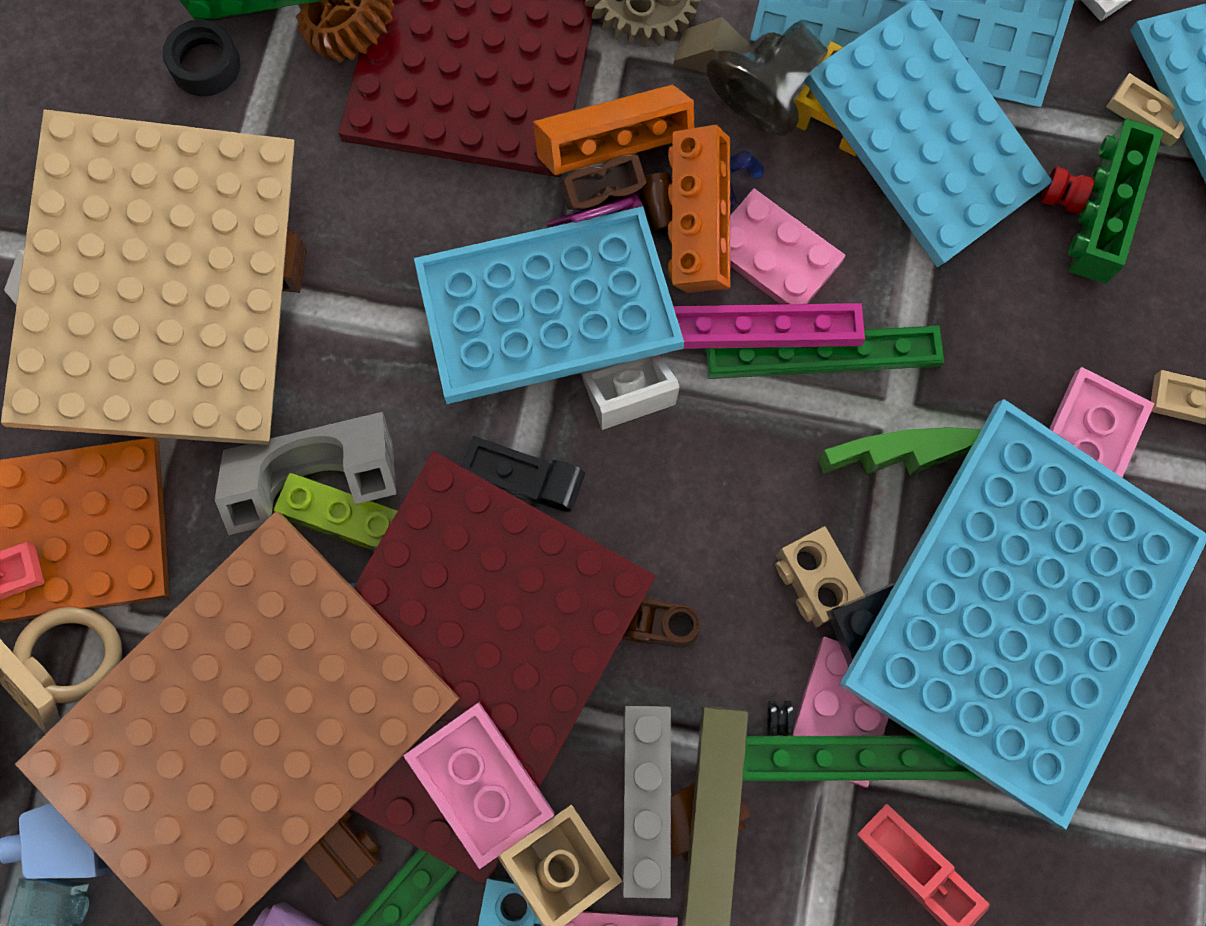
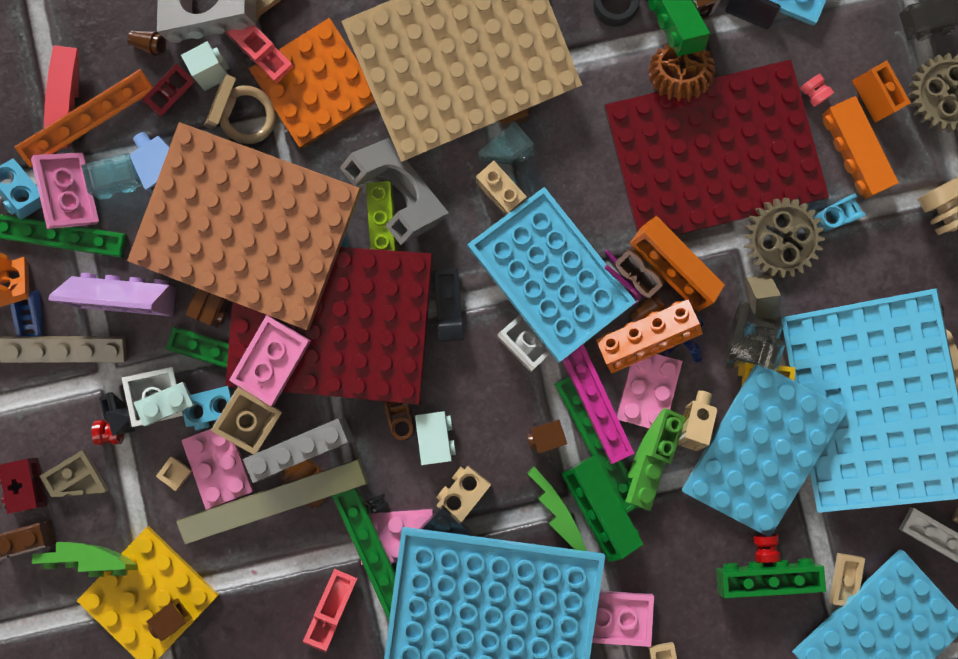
camera: 70 degrees right, 10 degrees up
(330, 287) = (508, 147): none -> clear light blue slope
(385, 323) = (500, 188): none -> tan brick
(715, 583) = (434, 437): none -> light aqua brick
(786, 411) = (546, 436): none -> reddish brown brick
(854, 202) = (697, 432): none -> tan torso
(869, 277) = (653, 453): none -> bright green slope
(924, 382) = (602, 509): none -> green brick

